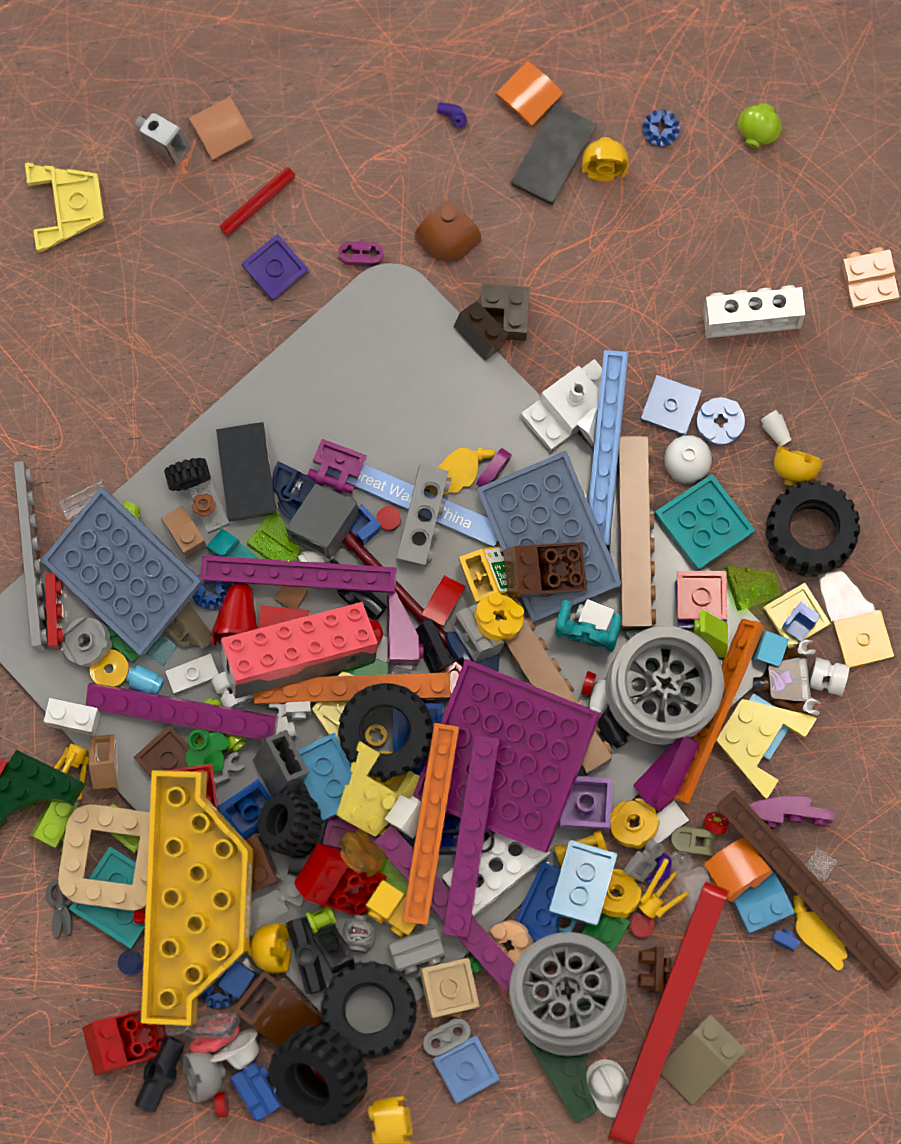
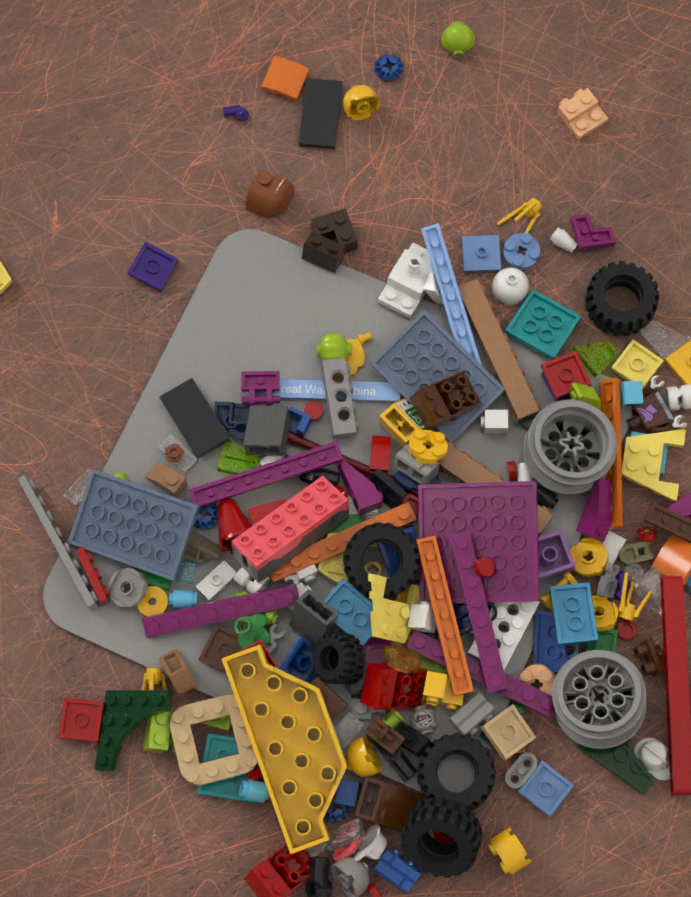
camera: 25 degrees left, 5 degrees down
(62, 913) = (191, 797): dark grey piece -> none
(72, 717) = (139, 648): white piece -> none
(130, 934) = (254, 791): none -> medium azure brick
(130, 962) = (259, 814): clear blue plate -> none
(163, 137) = (32, 205): light grey torso -> none
(187, 474) = (152, 435): black tyre -> none
(220, 127) = (71, 184): nougat slope -> none
(228, 545) = (202, 475): teal slope -> none
(257, 201) = (120, 226): red axle -> none
(291, 596) = (266, 494): medium nougat slope -> none
(303, 933) = (384, 735): none -> reddish brown hips
(362, 248) = (211, 233): magenta beam -> none
(442, 452) = (333, 346): none -> lime plant
(494, 468) = (375, 344): magenta beam -> none
(498, 787) = (484, 567): none -> red tile
(586, 631) = (496, 431): teal plate -> none
(753, 311) = (512, 165): white brick -> none
(753, 372) = (529, 209): none -> yellow plant
(796, 466) = (590, 260): yellow cylinder -> none
(800, 621) = (643, 366): panel -> none
(807, 436) = (588, 237): none -> magenta plate

